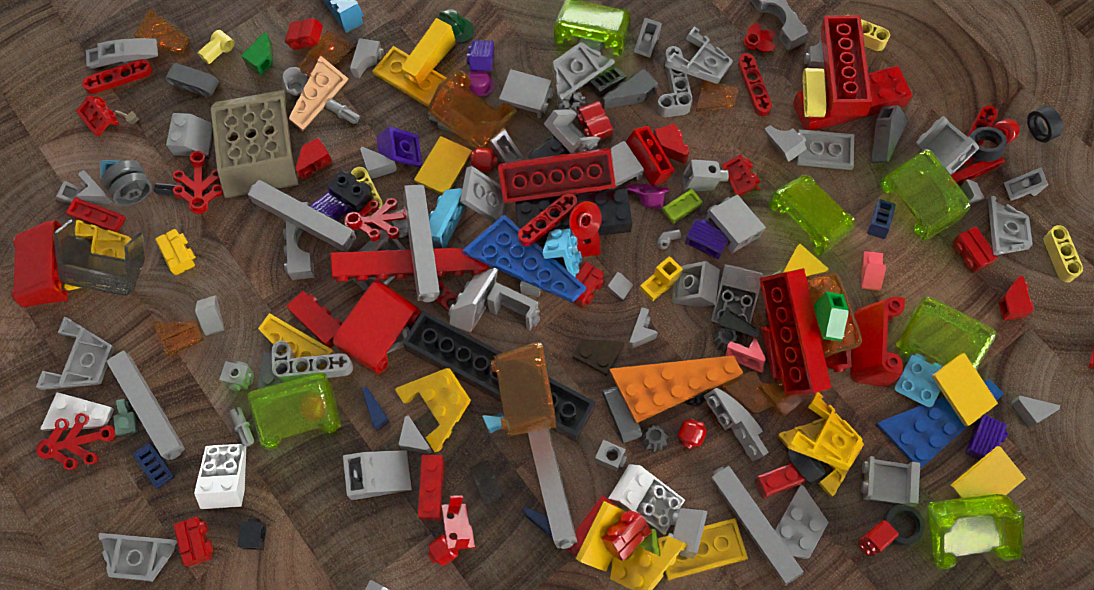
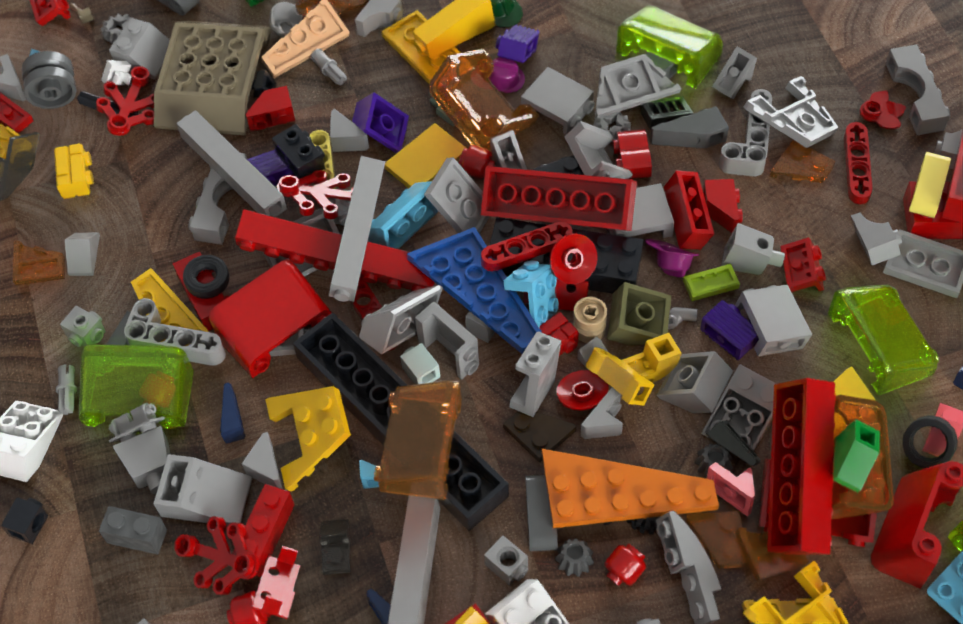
camera: 20 degrees right, 10 degrees down
(160, 128) = (109, 31): none -> light grey gear
(179, 161) = (117, 72): none -> white tile
(298, 140) = (262, 83): none -> black tile
(301, 444) = (143, 421): none -> light grey hinge
(311, 299) = (210, 289): none -> black tyre
(324, 462) = (145, 457): none -> light grey torso
(336, 517) = (133, 530): none -> dark grey brick
(410, 517) = (244, 564): none -> red plant
(498, 330) = (420, 365): none -> light aqua brick
(586, 314) = (540, 365): none -> light grey panel
(608, 259) = (590, 318): none -> tan wheel
(620, 308) = (581, 390): none -> red dish
(641, 247) = (638, 314): none -> olive slope
(644, 298) = (619, 376): none -> yellow leg
(870, 297) = (933, 421): none -> black tyre

